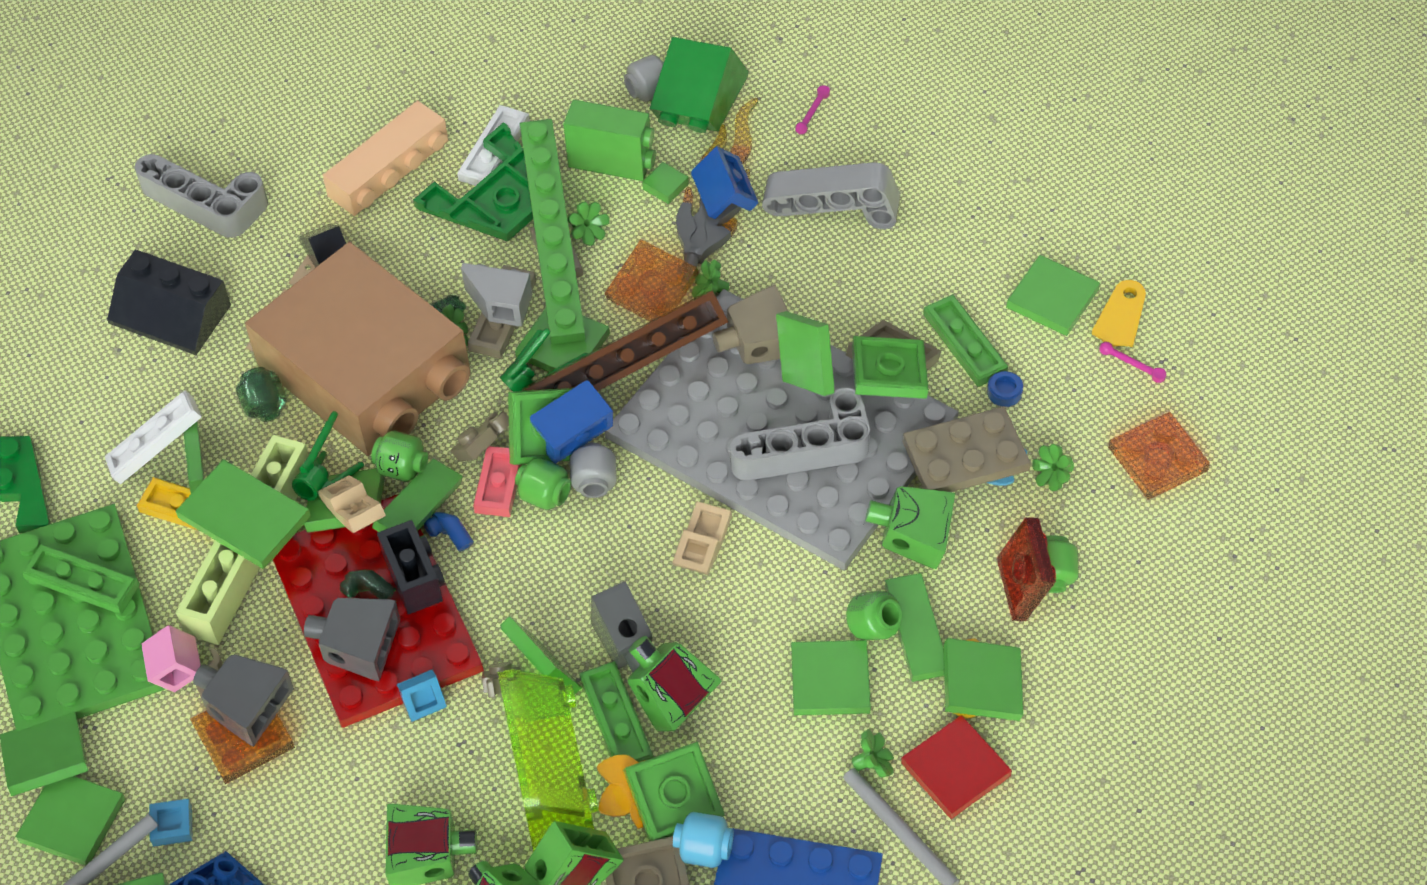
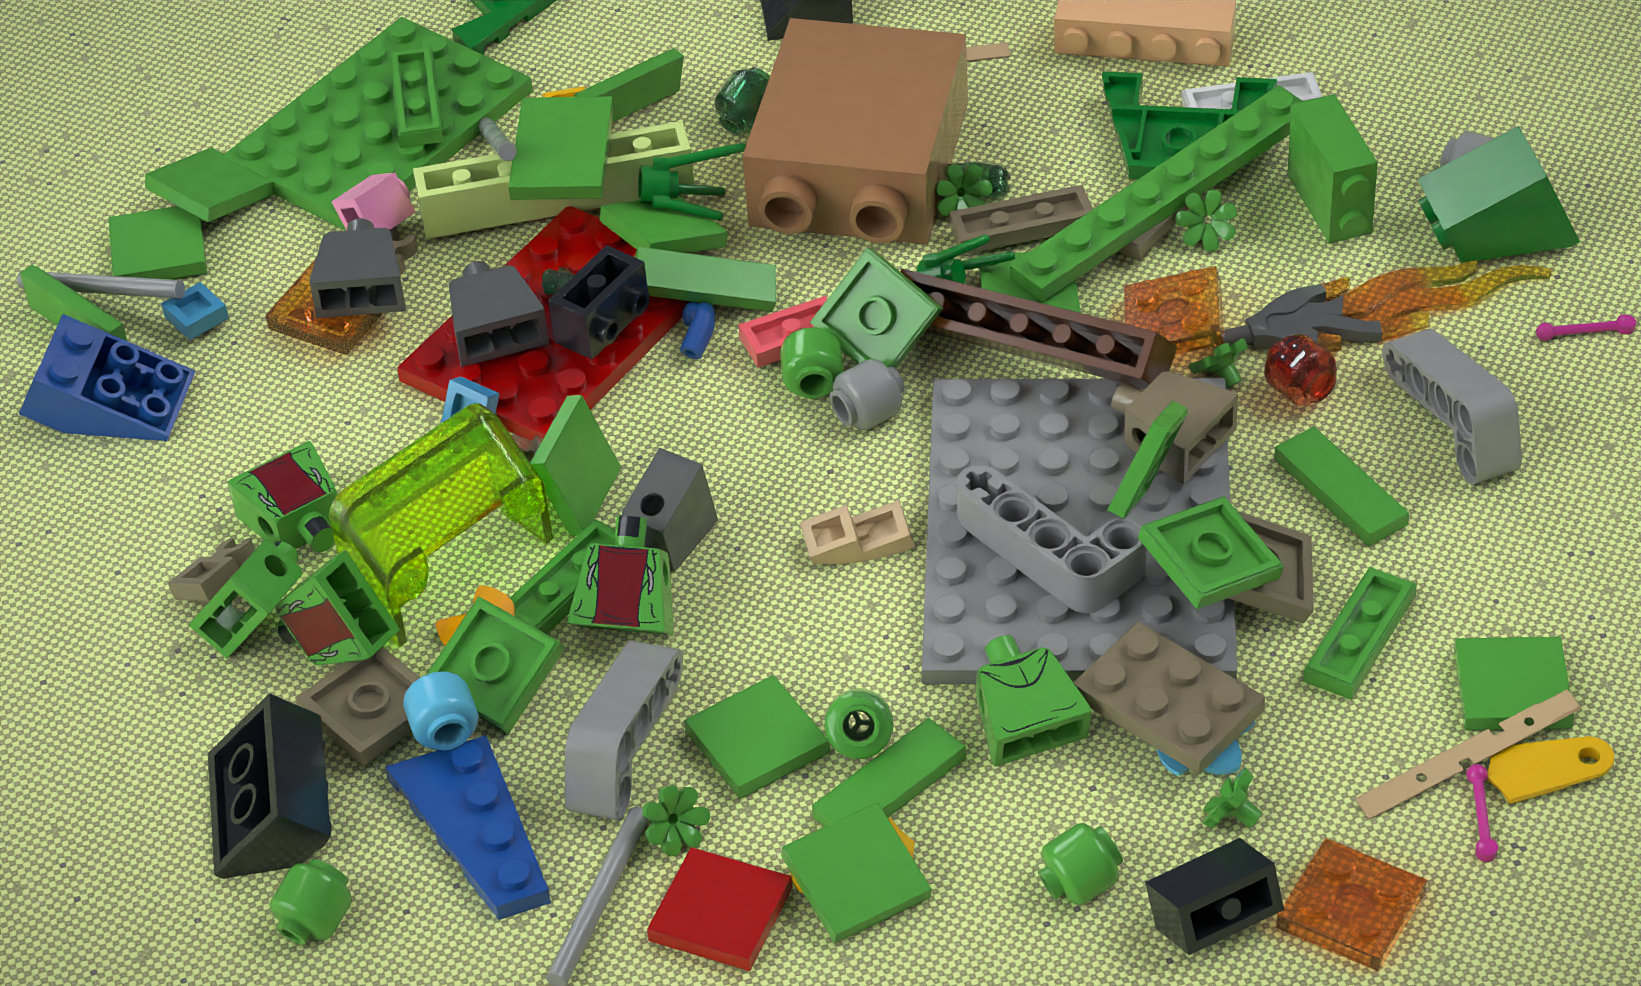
camera: 60 degrees right, 10 degrees down
(152, 437) = (621, 51): white tile -> none
(185, 549) = (497, 139): none -> light grey bar
(322, 242) = (986, 51): black slope -> none
(351, 503) = (643, 220): tan slope -> none
(399, 456) = (742, 228): bright green head -> none
(476, 440) = (818, 282): dark tan plate -> none
(498, 292) = (1026, 193): light grey slope -> none
(572, 421) = (890, 327): blue panel -> none
(665, 183) = (1338, 258): bright green tile -> none
(722, 182) = (1378, 297): blue panel -> none
(751, 249) = (1300, 369): none -> clear red head
(784, 741) = (615, 726): none -> light grey beam
(848, 285) = (1341, 486): none -> bright green tile
(1005, 389) = (1319, 704): blue tile -> none
(1026, 569) = (1031, 827): clear red plate -> none
(1091, 337) = (1475, 748): none -> tan piece
(1124, 512) = (1214, 896): none -> black brick

